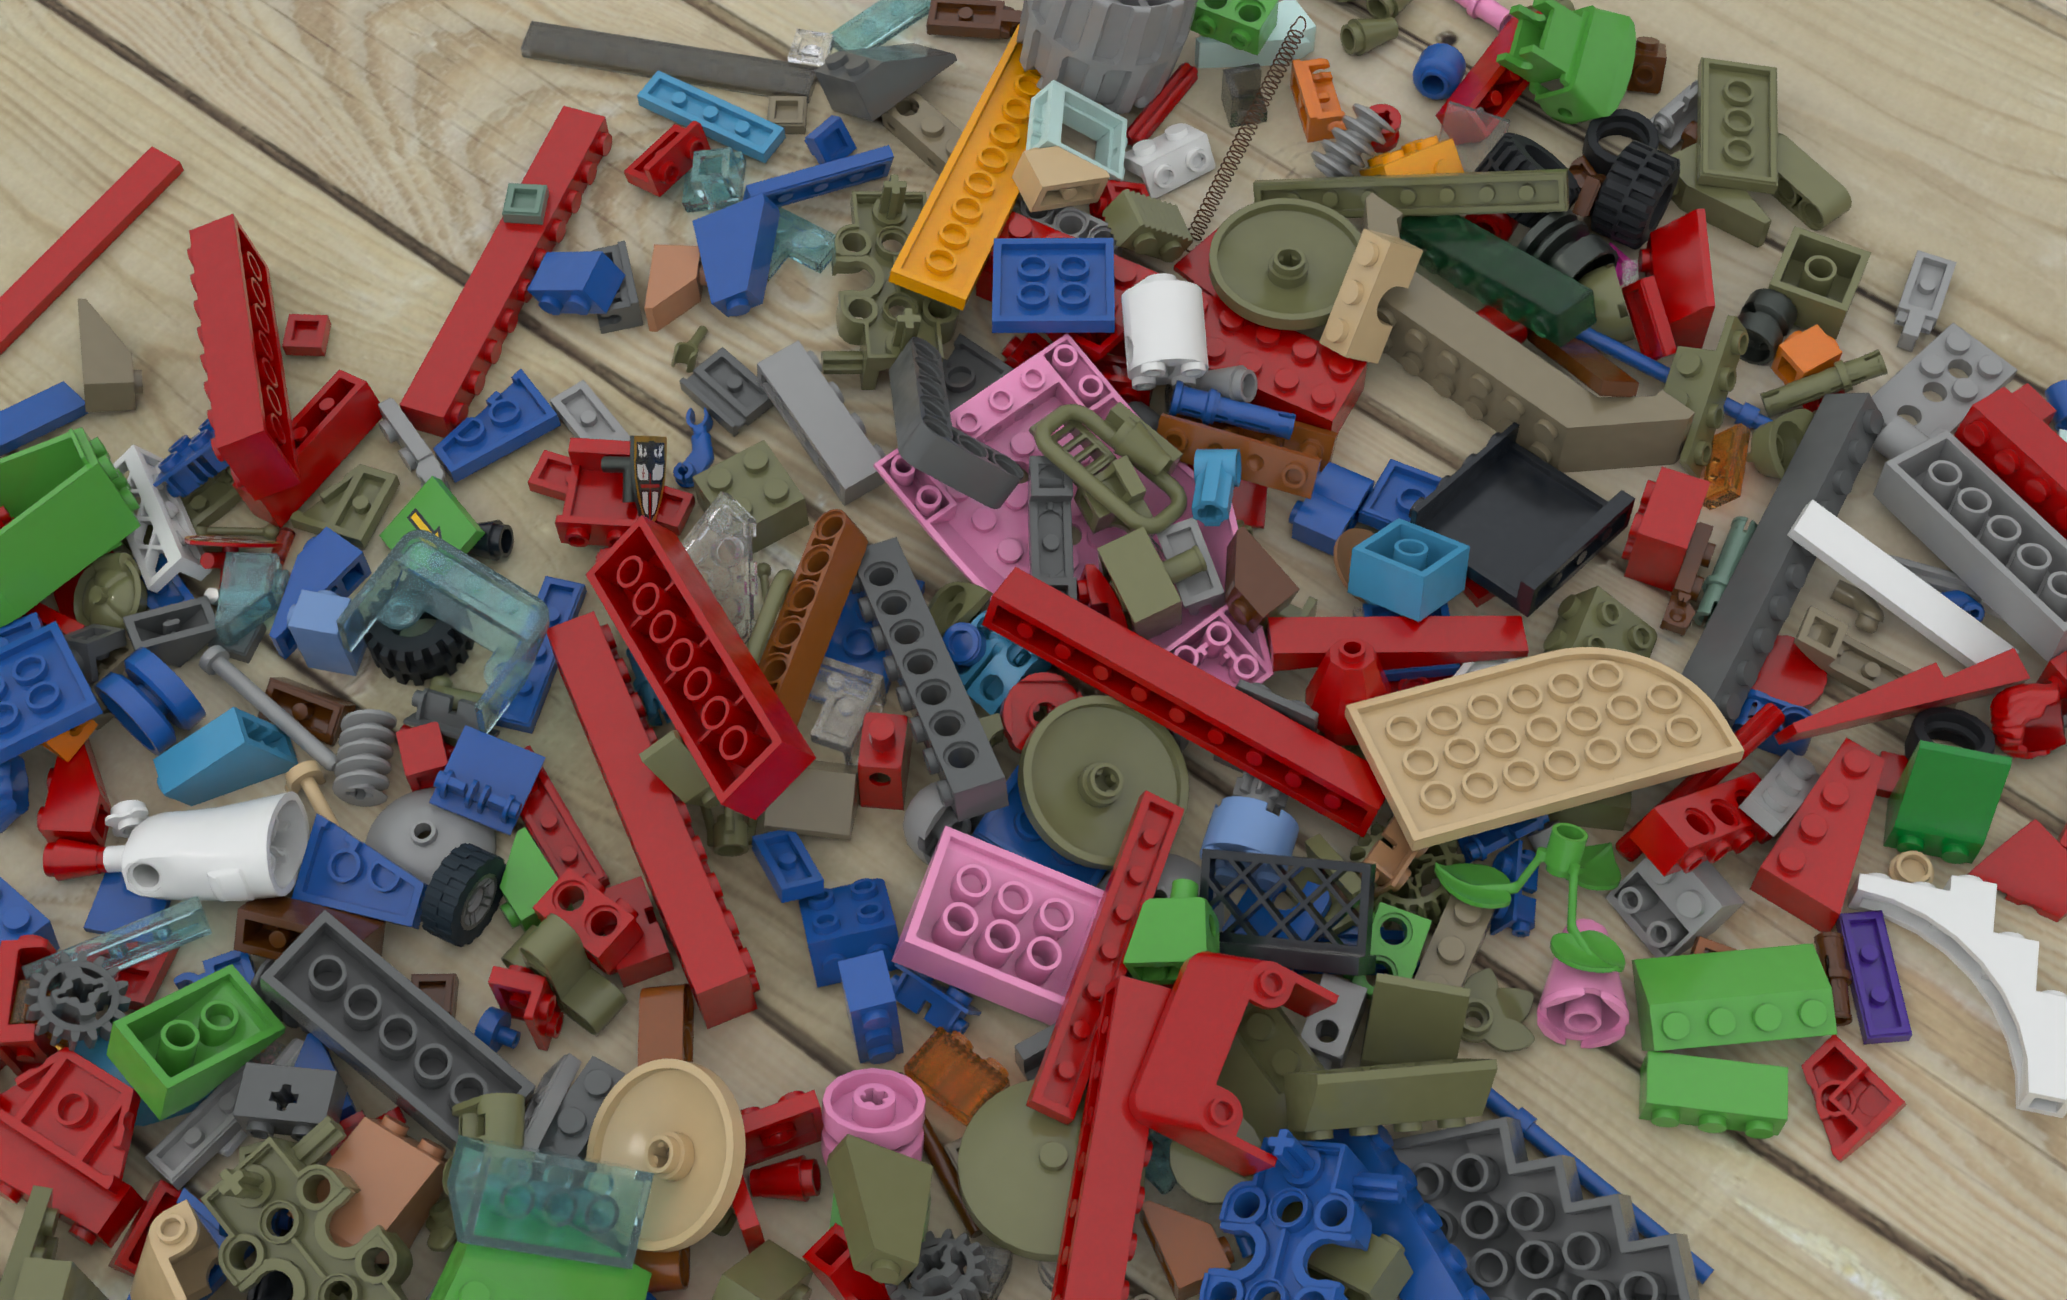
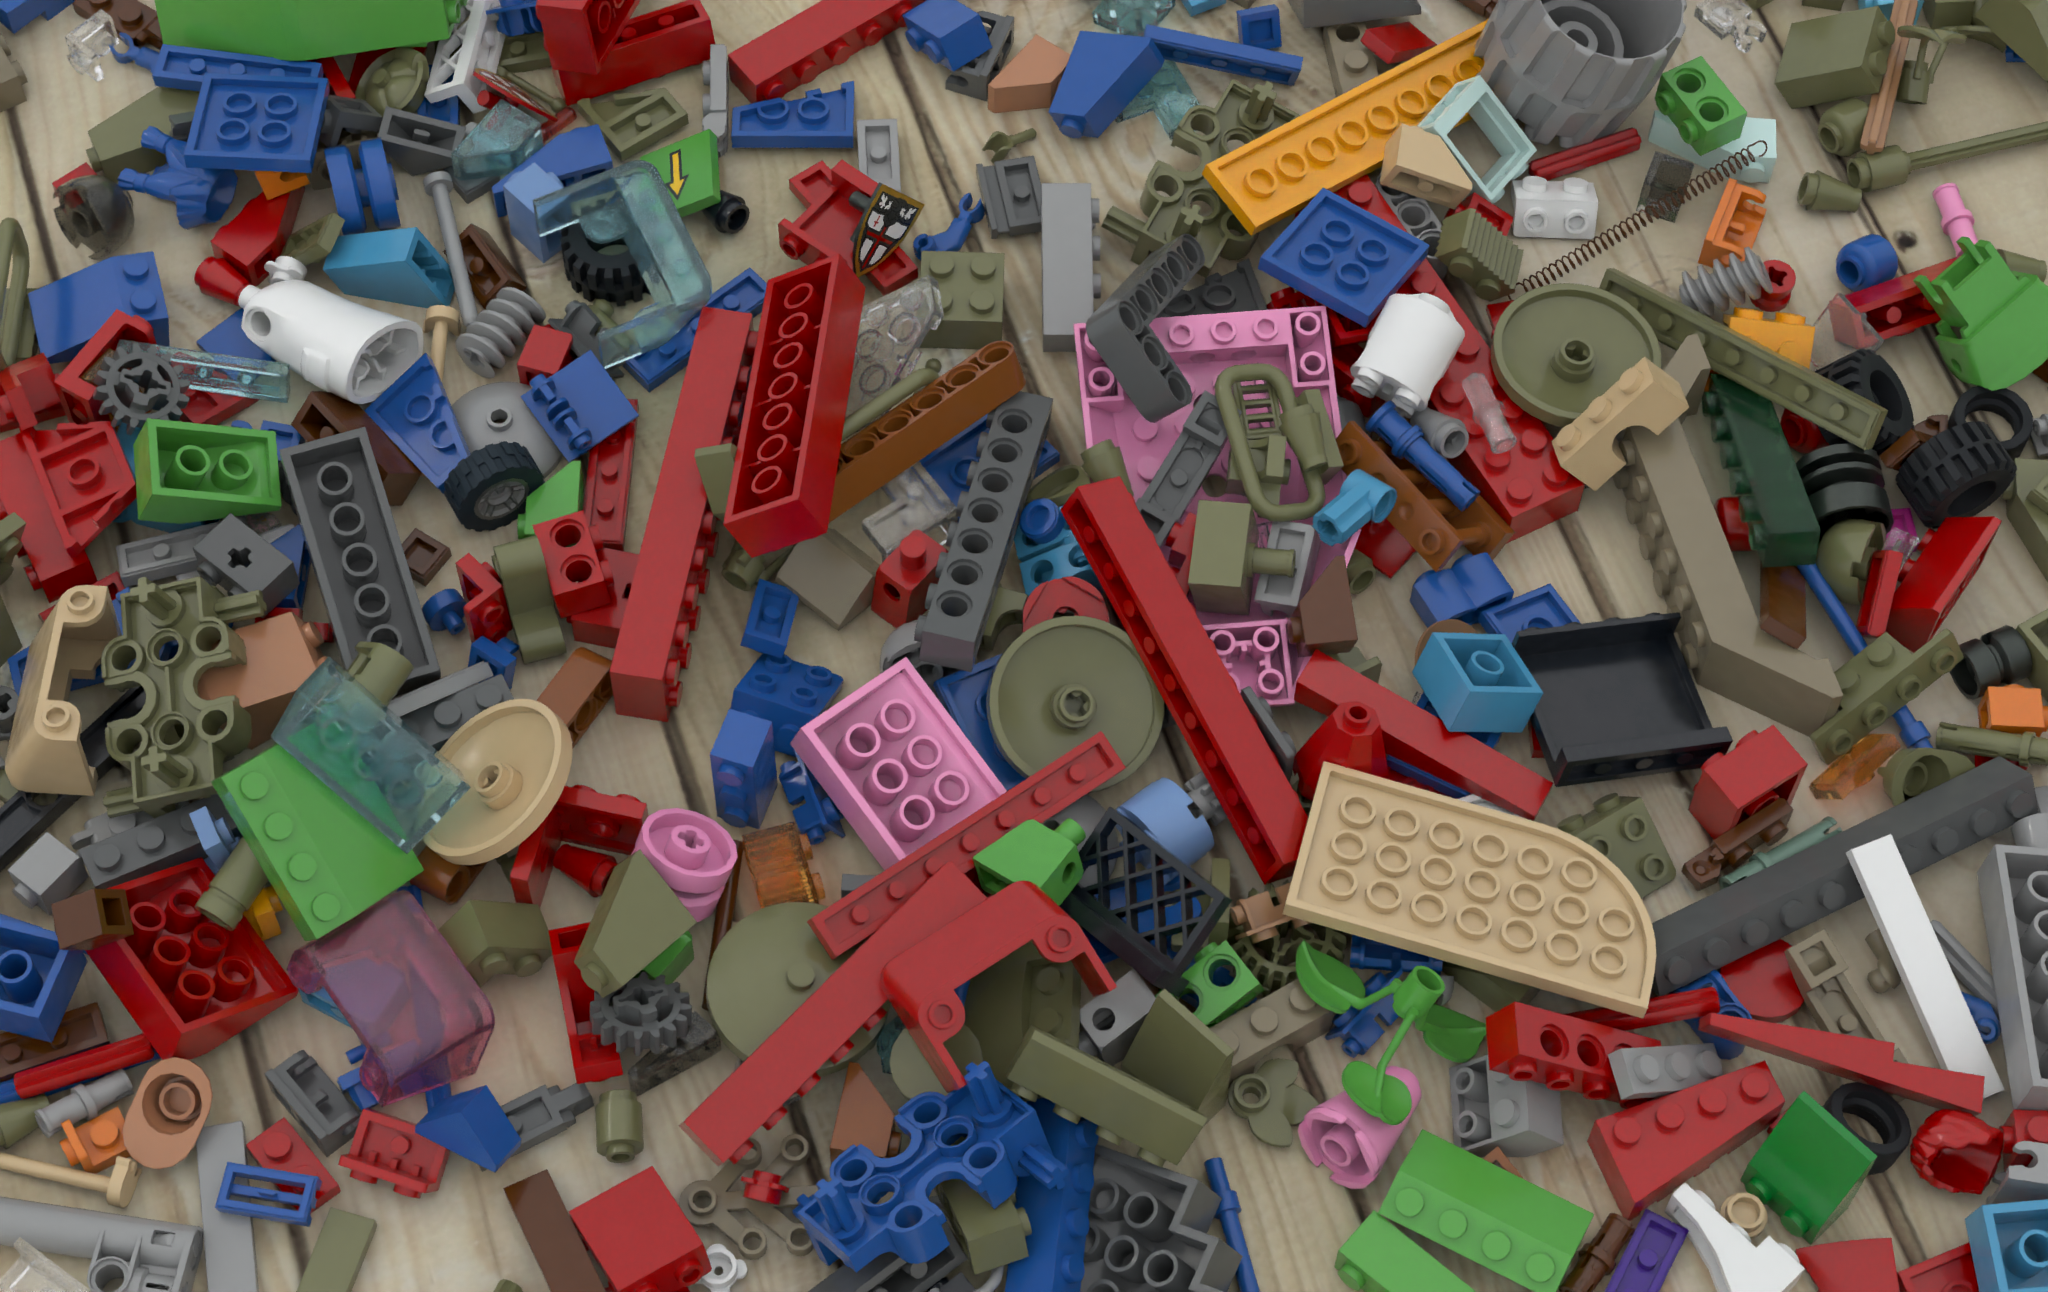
camera: 30 degrees right, 0 degrees up
(137, 773) = (314, 240): none -> olive plate
(570, 1041) = (497, 655): none -> blue tile
(953, 94) = (1396, 42): none -> red tile
(986, 567) = (1105, 462): none -> olive cone
(1257, 346) = (1489, 413): none -> clear axle

